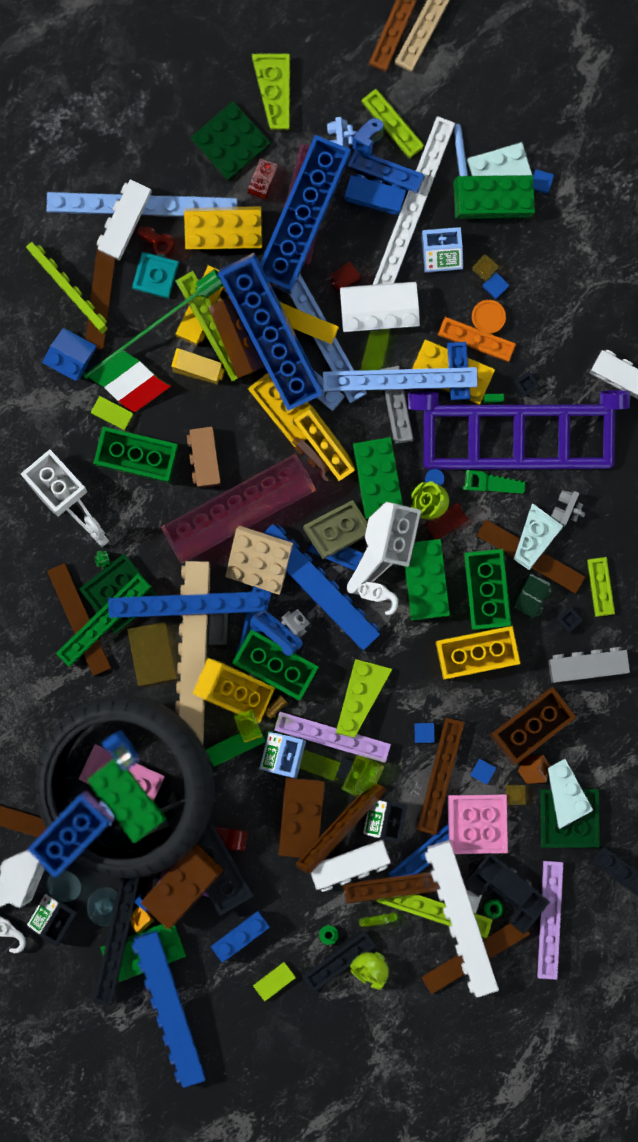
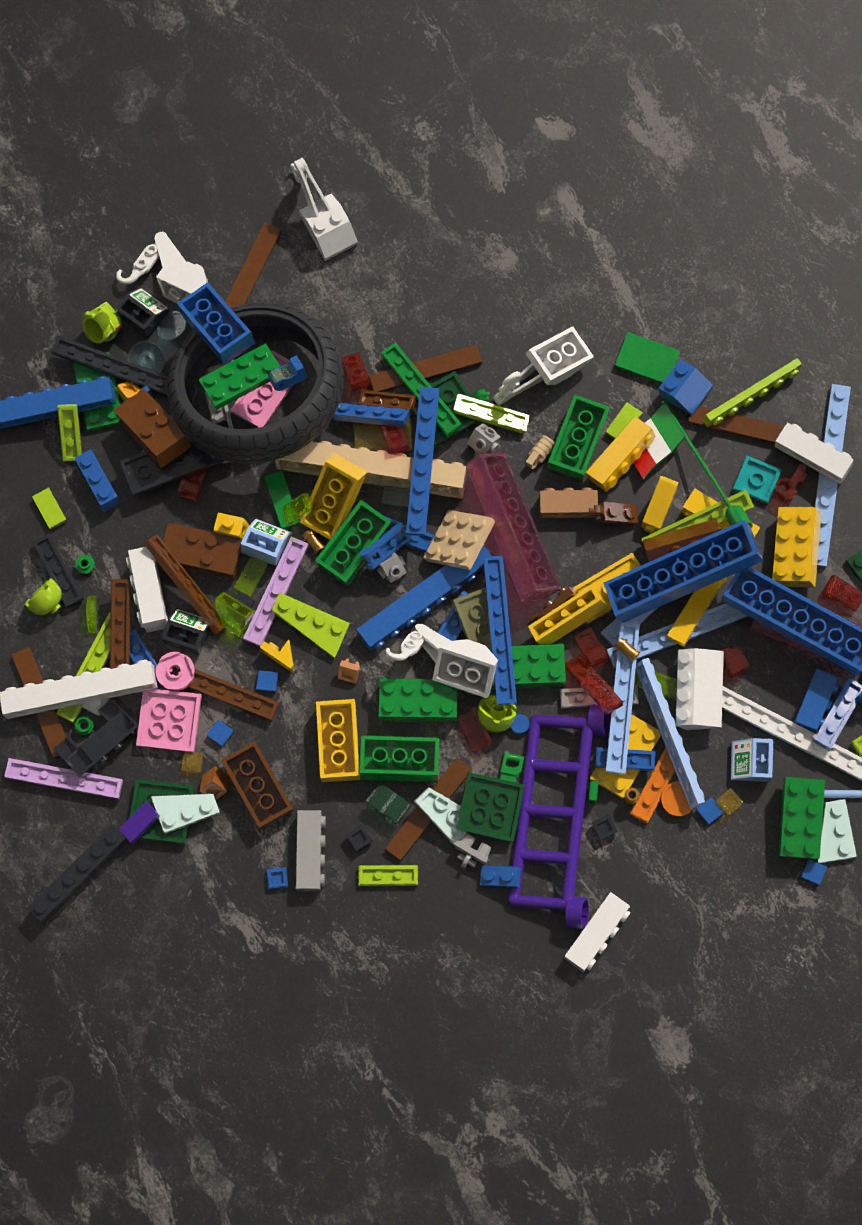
camera: 100 degrees right, 10 degrees down
(41, 397) = (646, 358): none -> green tile
(72, 958) = (101, 324): none -> lime piece
(91, 689) = (356, 371): none -> clear red plate
(120, 546) = (491, 413): none -> tile
(121, 653) = (387, 400): none -> reddish brown tile
(138, 662) = (372, 414): none -> blue plate
(147, 410) = (621, 454): none -> yellow brick
(149, 549) = (484, 439): none -> light grey brick
(153, 492) = (540, 451): none -> tan hinge
(157, 640) = (395, 439): none -> clear red plate
(194, 972) = (69, 431): none -> lime tile
(209, 408) = (615, 513): none -> reddish brown plate
(274, 792) = (230, 525): none -> yellow torso
(348, 506) = (500, 630): none -> blue plate
(350, 417) = (591, 648): none -> clear red plate
(352, 380) = (627, 649): none -> pearl gold pin
(390, 409) = (593, 684): none -> clear red plate
(399, 719) = (283, 657): none -> yellow slope
(405, 652) = (348, 671): none -> nougat tile
(427, 331) = (669, 734): none -> light blue plate
(427, 835) = (173, 682): none -> bright pink plate
(494, 356) = (636, 794): none -> pearl gold pin
(523, 495) = (490, 807): none -> dark green plate
(586, 836) = (139, 822): none -> dark purple tile
(588, 478) = (500, 876): none -> blue plate
(618, 694) = (277, 878): none -> blue tile

